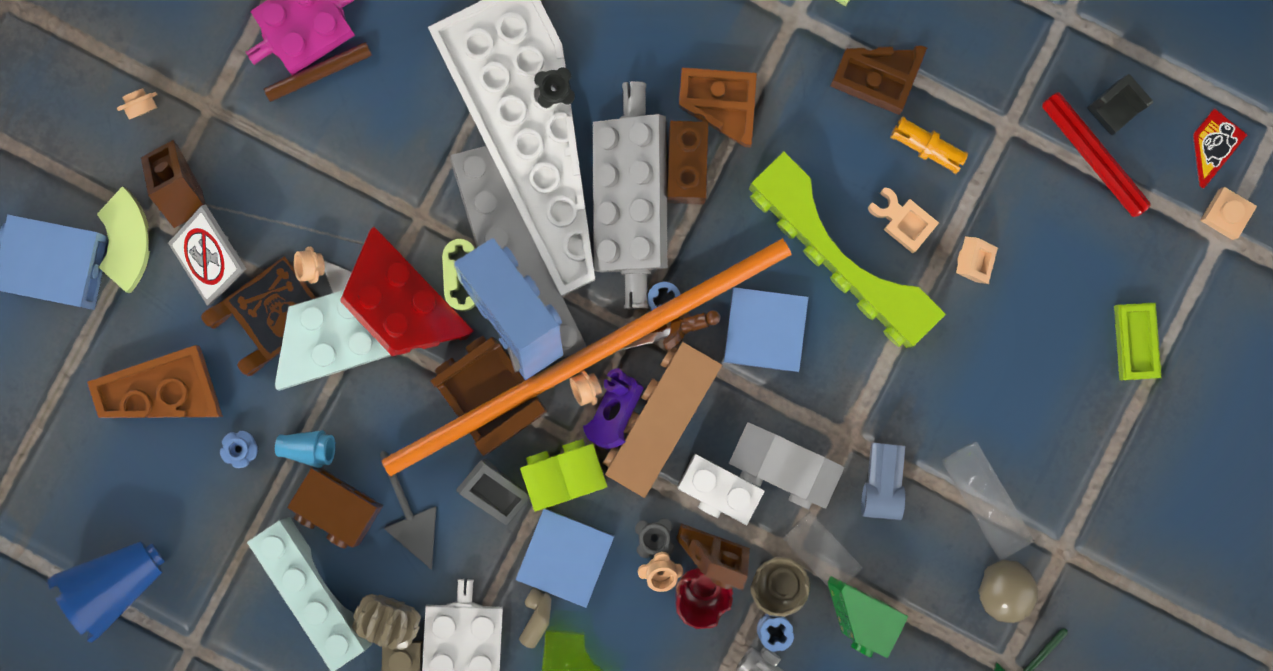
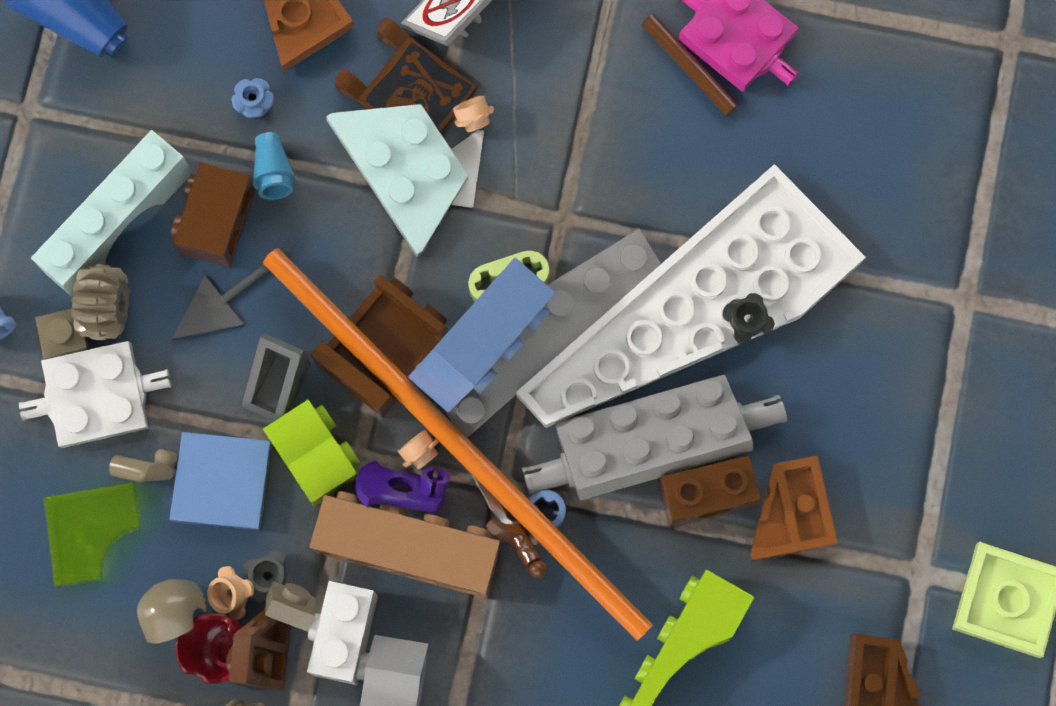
camera: 75 degrees right, 10 degrees down
(397, 301) = (459, 217): red wing -> none
(663, 625) = (169, 609): none -> dark tan hair
(688, 525) = (290, 605): none -> dark tan plate
(765, 329) = (543, 638): medium blue tile -> none

